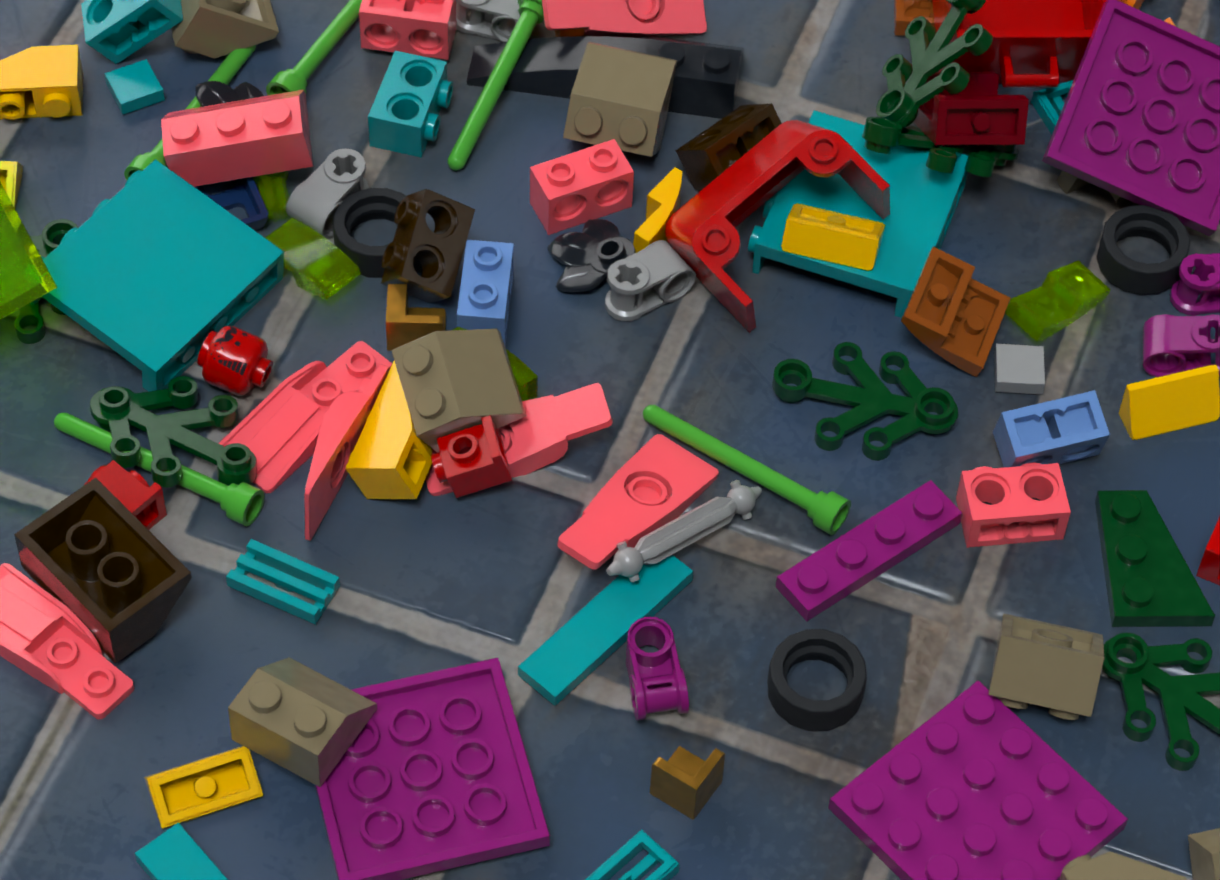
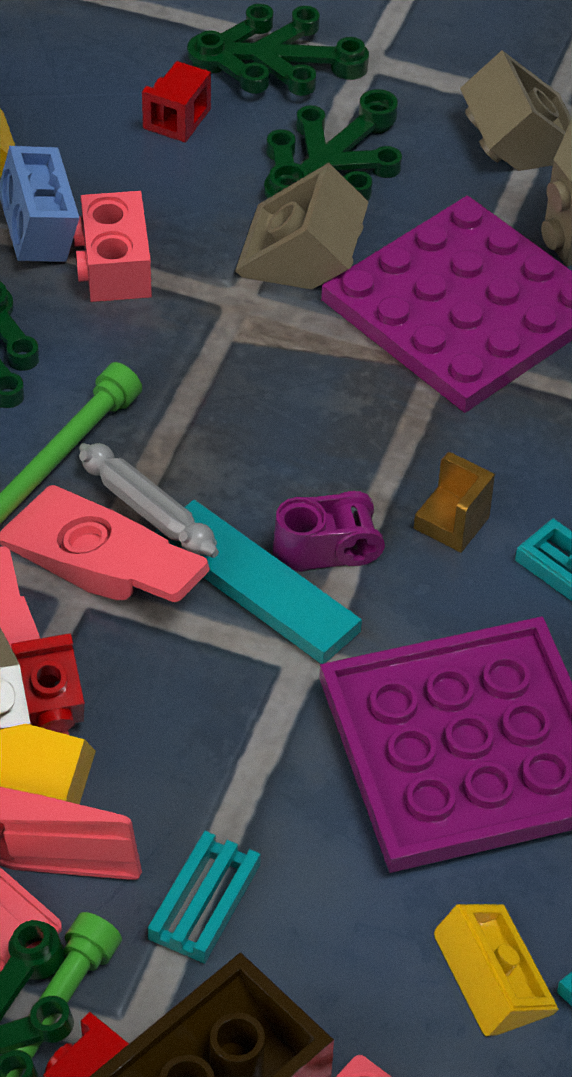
camera: 90 degrees left, 5 degrees down
(298, 718) = (430, 834): dark tan slope -> none
(823, 646) = (328, 433): black tyre -> none
(868, 550) = (162, 365): magenta plate -> none
(1144, 567) = (180, 169): dark green wing -> none

